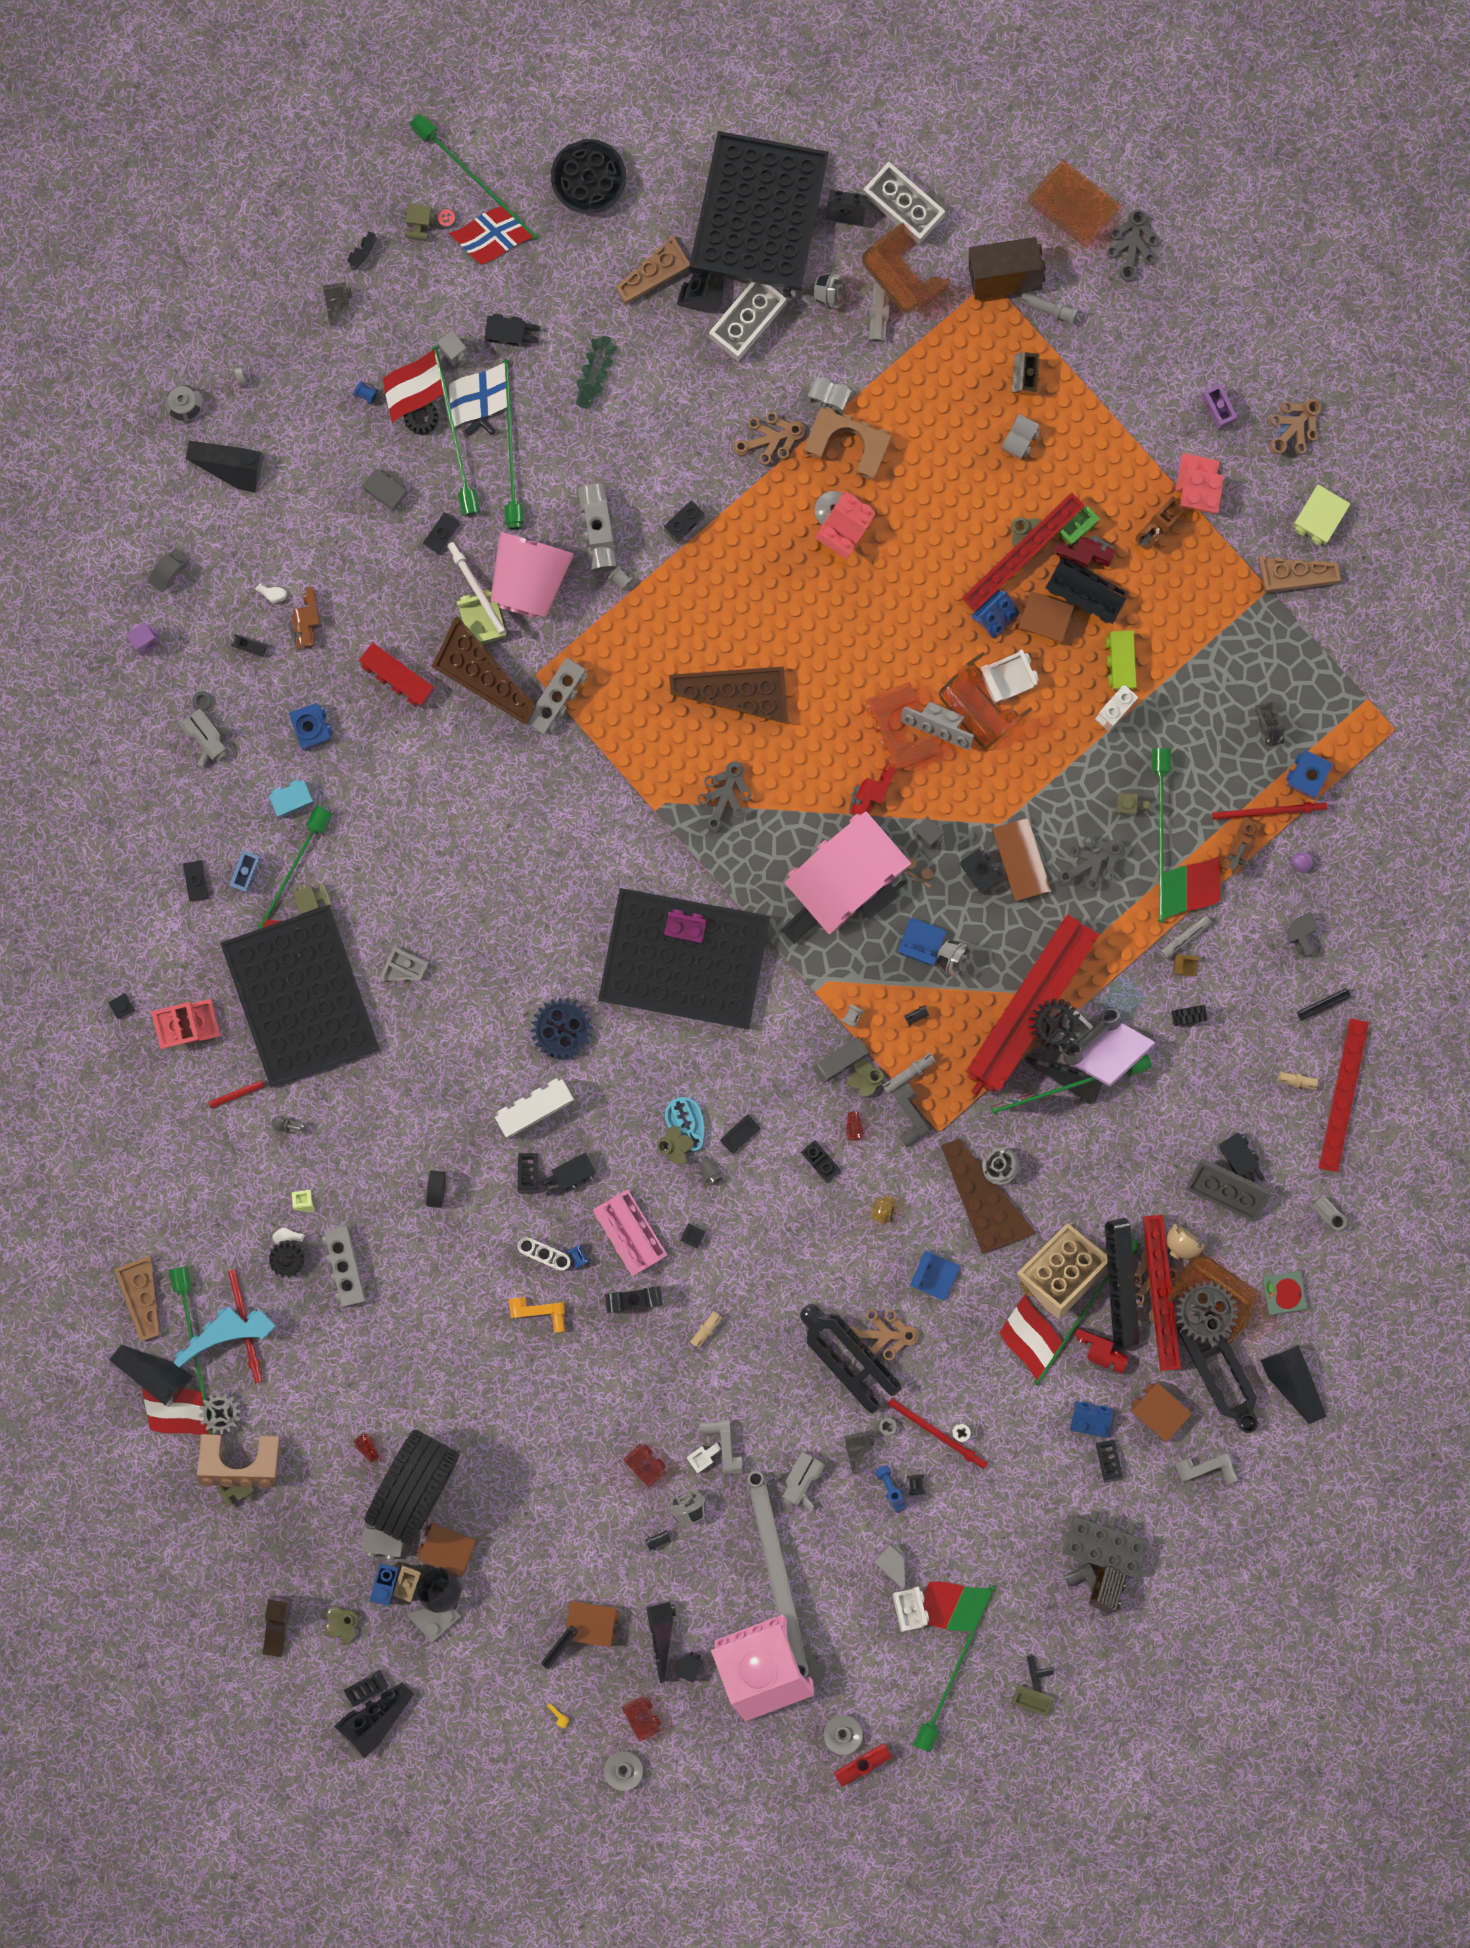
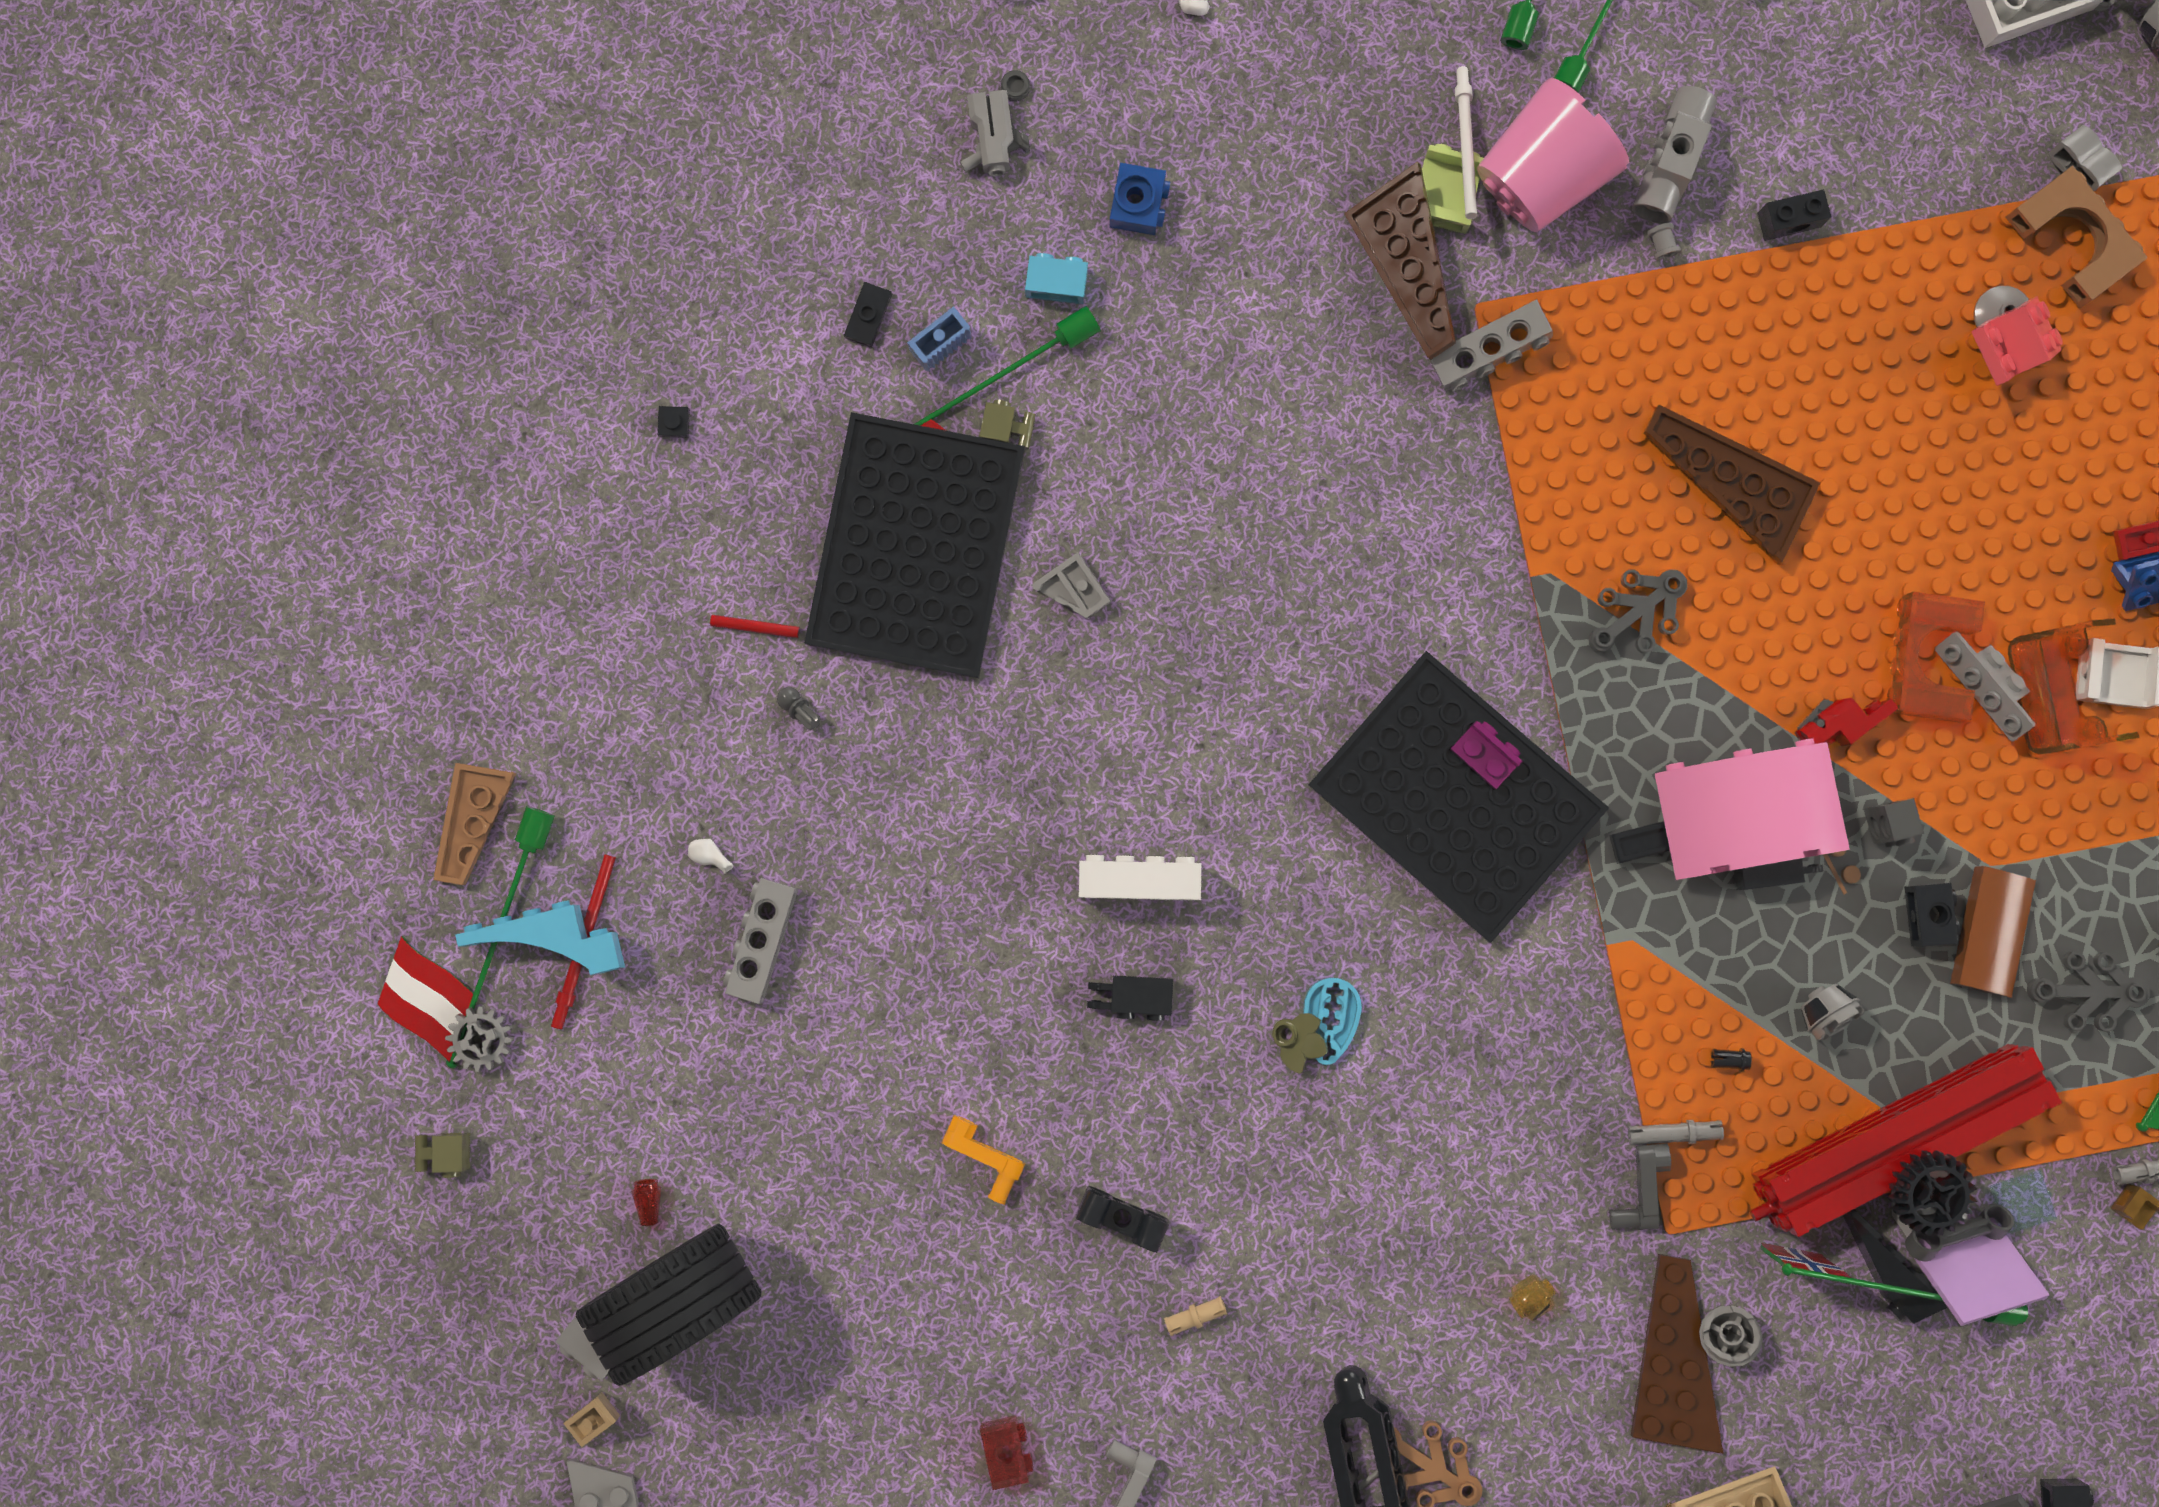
camera: 35 degrees right, 0 degrees up
(157, 1376) = (422, 933): black wedge -> none
(186, 1024) = (741, 493): coral bracket -> none
(251, 646) = (1121, 51): black bar -> none
(261, 1472) = (482, 1155): medium nougat arch -> none
(276, 1625) = (385, 1369): dark brown arch -> none
(290, 1269) = (678, 896): black tyre -> none
(302, 1201) = (757, 820): yellowish green slope -> none
(304, 621) = (1212, 58): dark orange plate -> none
(339, 1626) = (469, 1421): olive plate -> none
(384, 1584) = (558, 1406): blue slope -> none
(397, 675) = (1292, 197): red brick -> none
(436, 1189) = (943, 909): black tyre -> none
(439, 1590) = (617, 1452): black piece -> none
(441, 533) = (1458, 48): black plate -> none
(446, 1549) = (671, 1406): dark orange panel -> none
(527, 1189) = (1065, 982): black slope -> none
(551, 1260) = (1041, 1097): white beam -> none
(553, 1044) = (1260, 779): dark blue gear -> none
(578, 1256) = (1081, 1113): blue bush -> none
(629, 1232) = (1169, 1124): bright pink brick -> none
(692, 1236) = (1251, 1177): black plate -> none
(702, 1458) = (1087, 1489): white plate -> none
(709, 1171) = (1324, 1104): dark grey cone -> none
(740, 1134) = (1394, 1076): black tile -> none
(773, 437) = (1973, 172): medium nougat plant -> none
(820, 1161) = (1483, 1179): black slope -> none
(841, 1060) = (1591, 1058): dark grey beam -> none
(852, 1016) = (1643, 1008): light grey bush -> none
(854, 1127) = (1556, 1159): clear red cone -> none
(862, 1079) = (1605, 1100): olive plate -> none
(921, 942) = (1794, 964): blue bracket -> none
(934, 1275) = (1549, 1428): blue bracket -> none
(1189, 1015) = (2110, 1282): black tyre -> none

